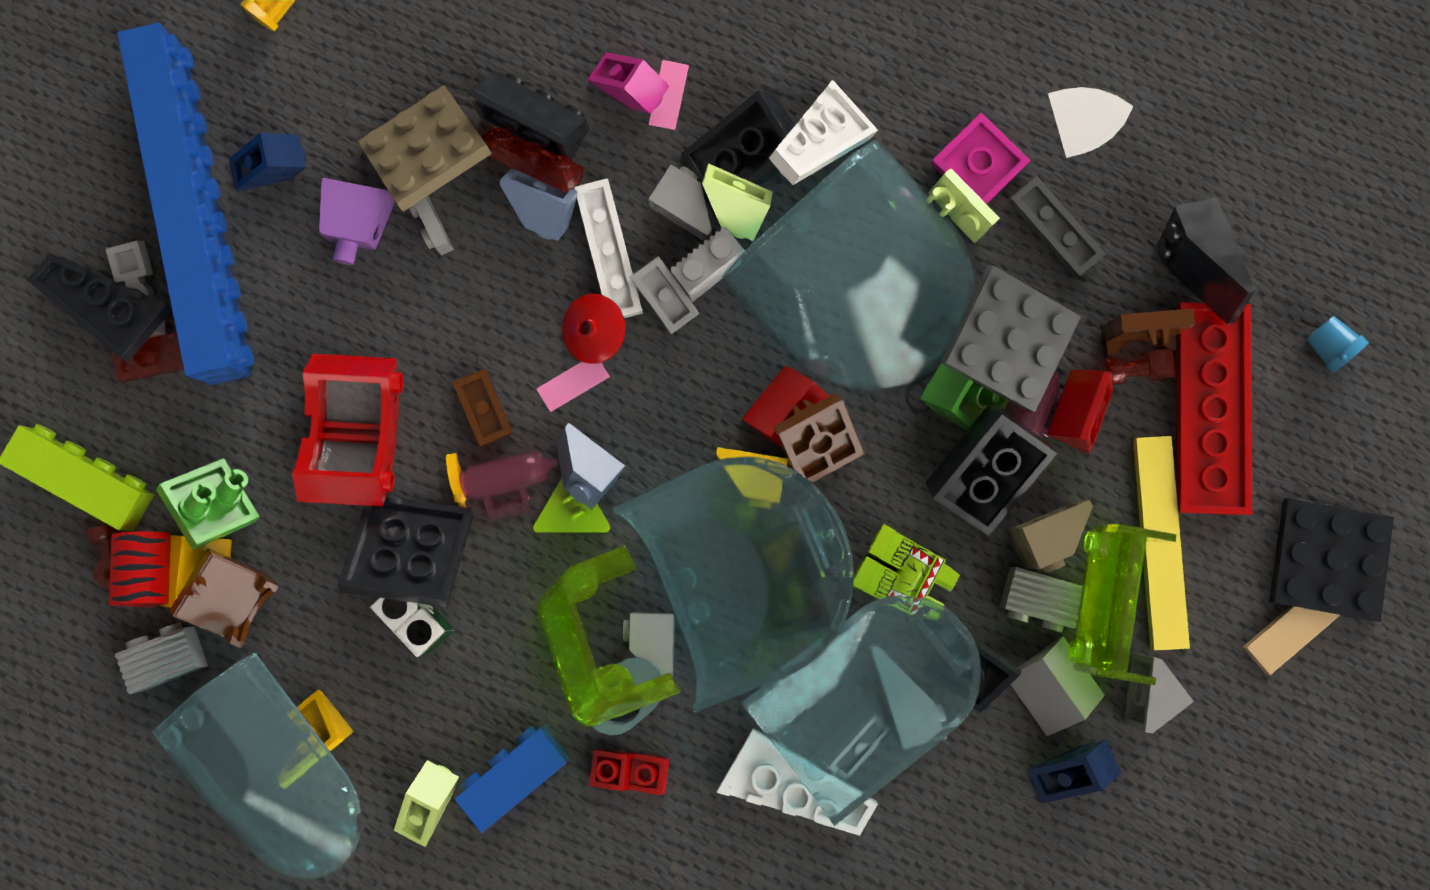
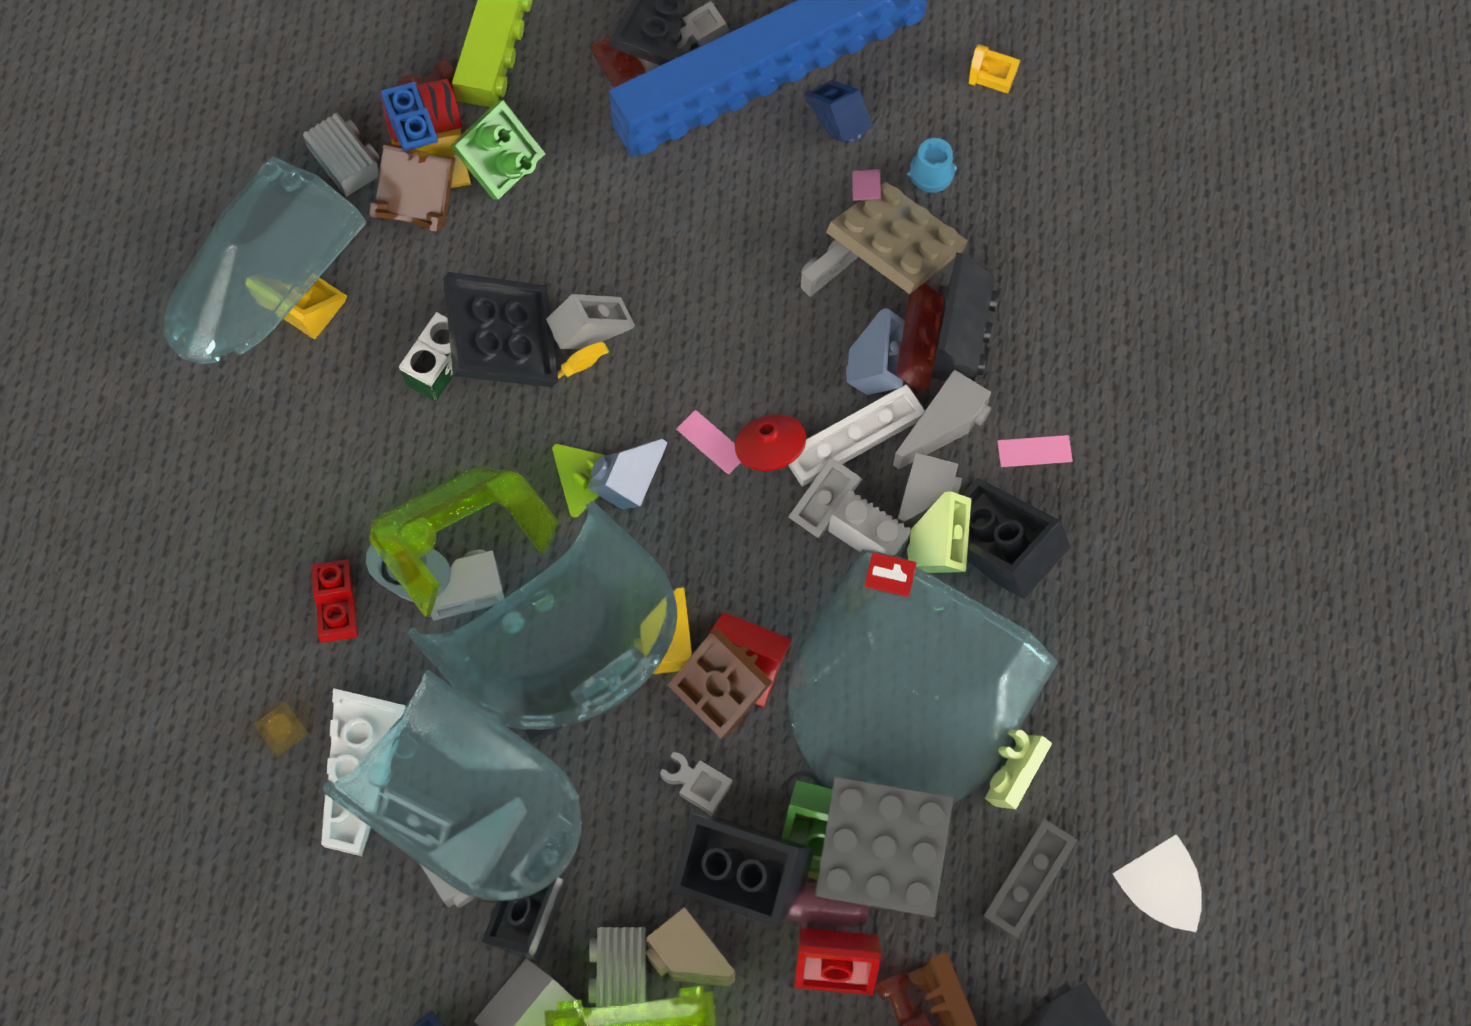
camera: 70 degrees right, 15 degrees down
(149, 583) = (408, 116): none -> blue slope
(351, 430) = (602, 252): red window -> none
(352, 217) = (808, 195): medium lavender torso -> none
(356, 92) = (932, 166): none -> dark azure piece
(358, 159) = (866, 184): none -> bright pink sticker
(419, 462) = (588, 320): none -> light grey slope
(425, 802) = (260, 418): yellowish green slope -> none
(483, 408) = (660, 364): reddish brown plate -> none
(506, 476) = (598, 401): clear pink piece -> none
(511, 777) = (303, 489): blue brick -> none
(612, 152) = (947, 418): none -> light grey slope
(629, 81) = (1030, 407): dark pink slope -> none
(738, 848) = (281, 729): none -> clear yellow plate
(766, 257) = (890, 574): none -> red sticker
(822, 135) = (1045, 605): white wing -> none
(897, 483) = (702, 785): none -> light grey plate
(915, 565) = (613, 828): lime hips -> none
(982, 158) = (1074, 778): dark pink plate -> none

